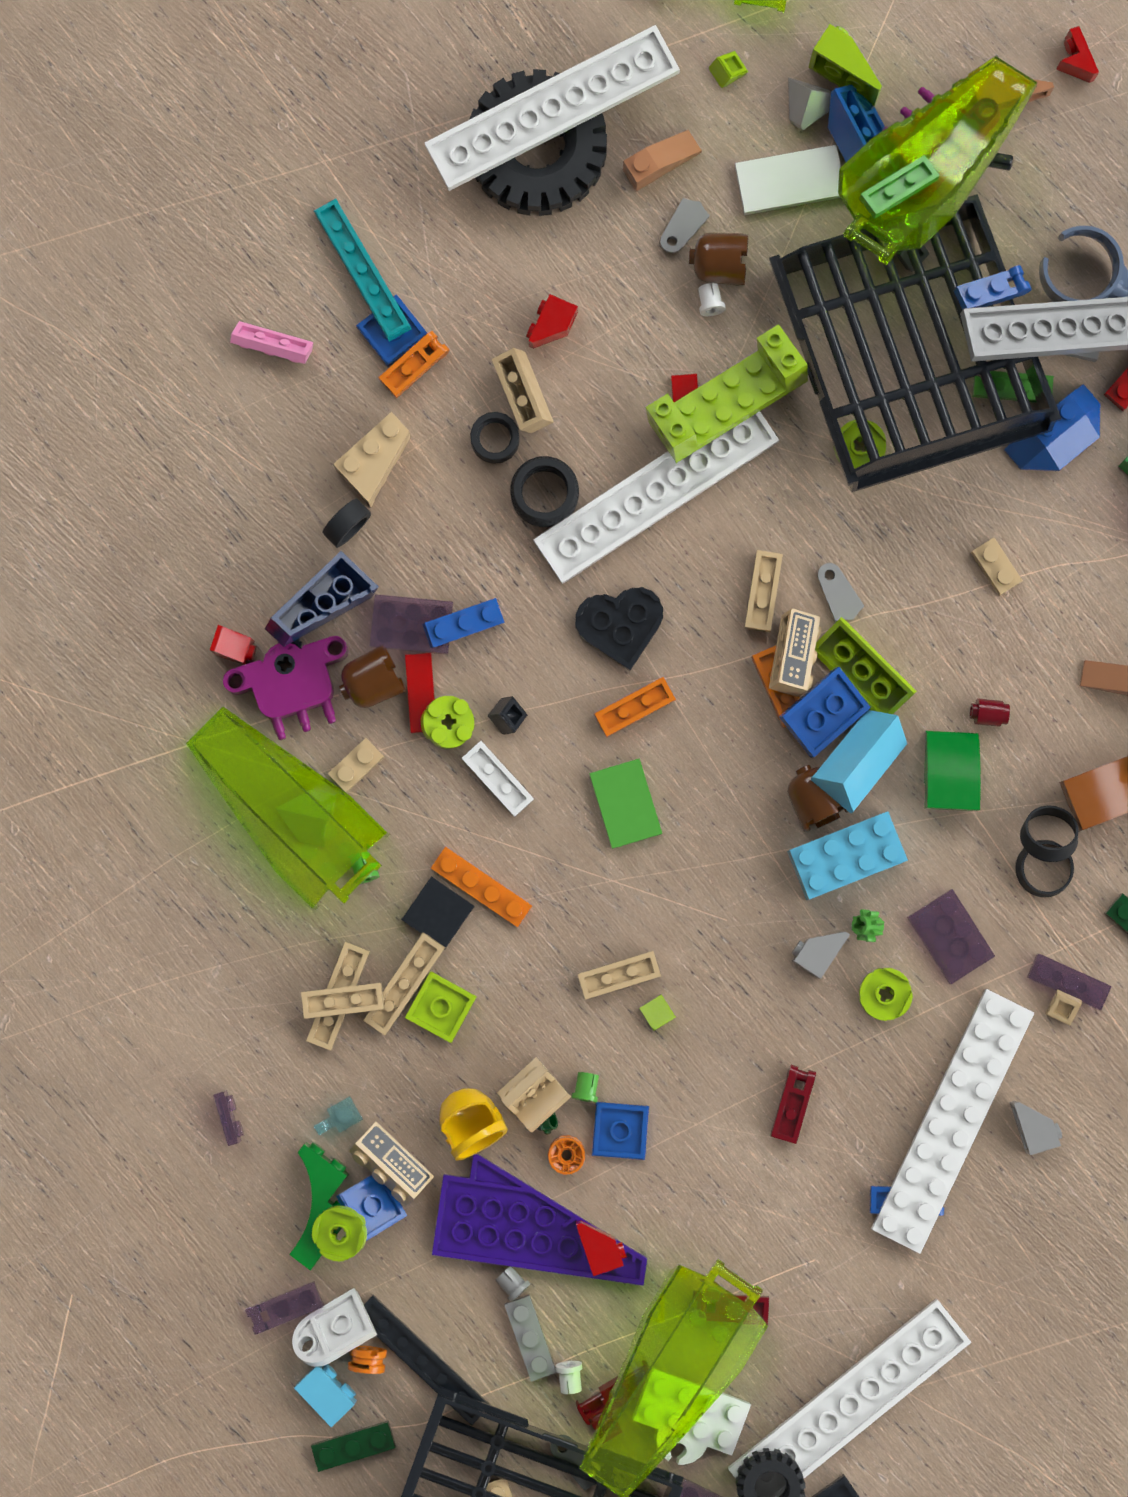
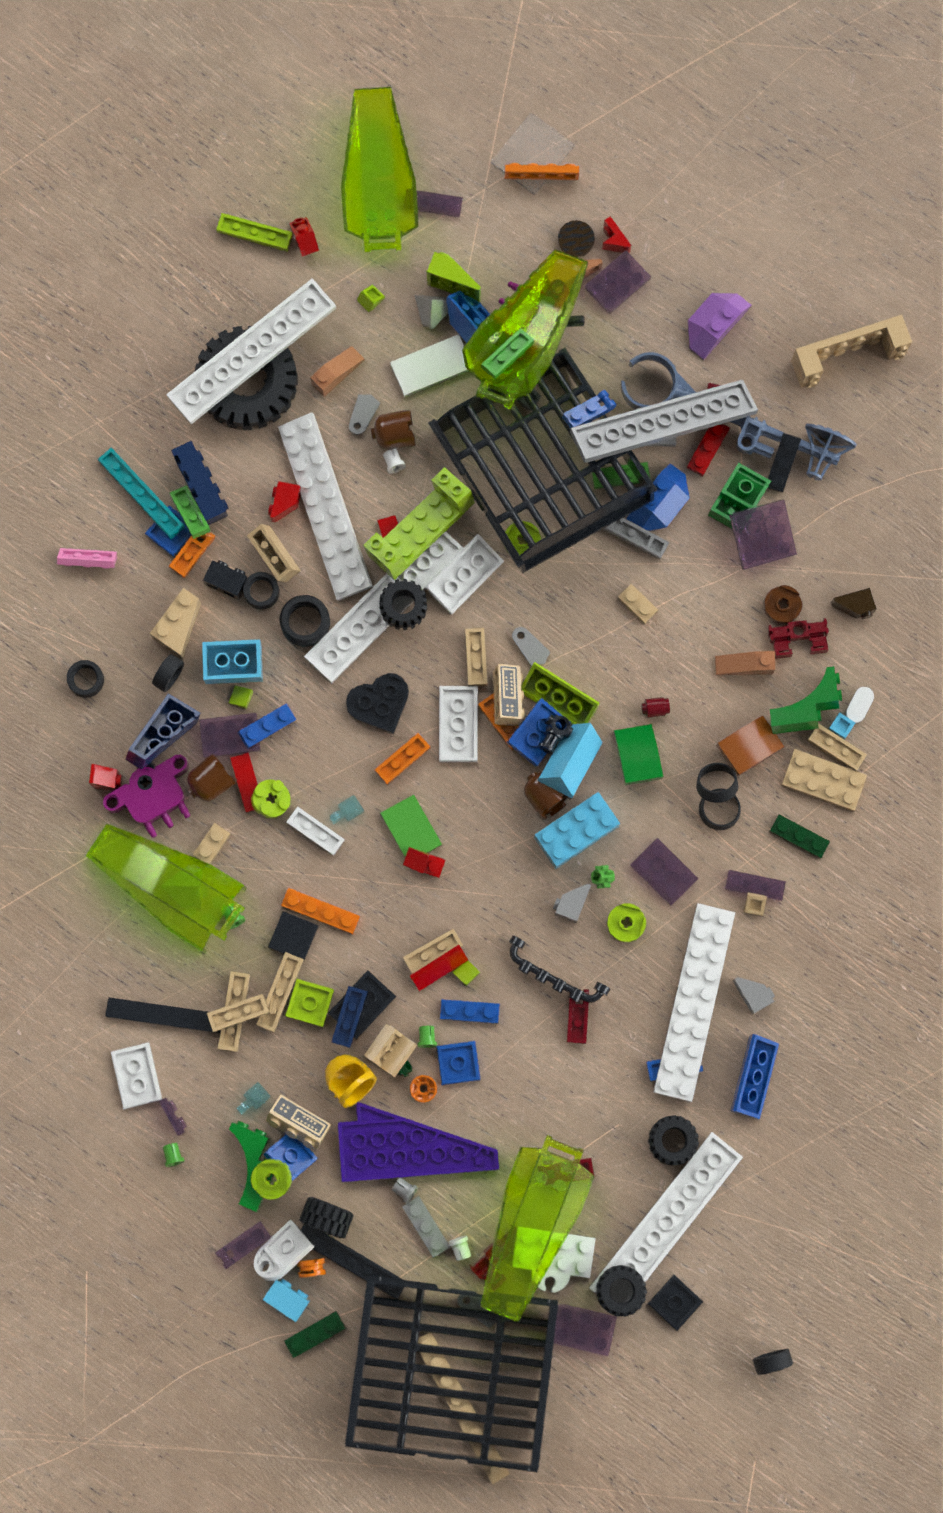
camera: 15 degrees left, 5 degrees down
(191, 1052) = (136, 1075): none -> white tile
(216, 1168) = (172, 1155): none -> bright green bush
(217, 496) = (85, 664): none -> black tyre
(237, 977) = (158, 1014): none -> black tile
(401, 1299) = (326, 1217): none -> black tyre
(422, 310) = (190, 512): none -> bright green plate
(435, 526) = (232, 661): none -> medium azure brick
(437, 575) = (241, 697): none -> lime slope
(443, 273) = (199, 482): none -> dark blue wedge
(450, 412) = (225, 579): none -> black brick
(489, 1039) = (349, 1017): none -> dark blue plate
(507, 715) = (313, 784): black slope -> none
(509, 1025) = (376, 1001): none -> black plate
(549, 759) = (348, 808): none -> clear light blue plate
(600, 1248) = (462, 1148): red slope -> none
(605, 342) = (325, 506): none -> white plate
(622, 998) = (439, 967): none -> red tile
(633, 853) = (423, 862): none -> red slope
(650, 1065) = (469, 1011): none -> blue plate
(688, 478) = (403, 588): none -> black tyre
(719, 676) = (458, 723): none -> white tile
(772, 475) = (464, 574): none -> white tile
(777, 1057) = (558, 984): none -> black bar
(845, 720) = (553, 734): none -> black connector
(899, 1316) = (689, 1133): none -> black tyre
(1010, 1238) = (754, 1076): none -> blue slope
(1018, 476) = (638, 537): none -> light grey plate
(1025, 46) = (576, 238): none -> dark brown tile
(1068, 119) = (617, 282): none -> clear purple plate

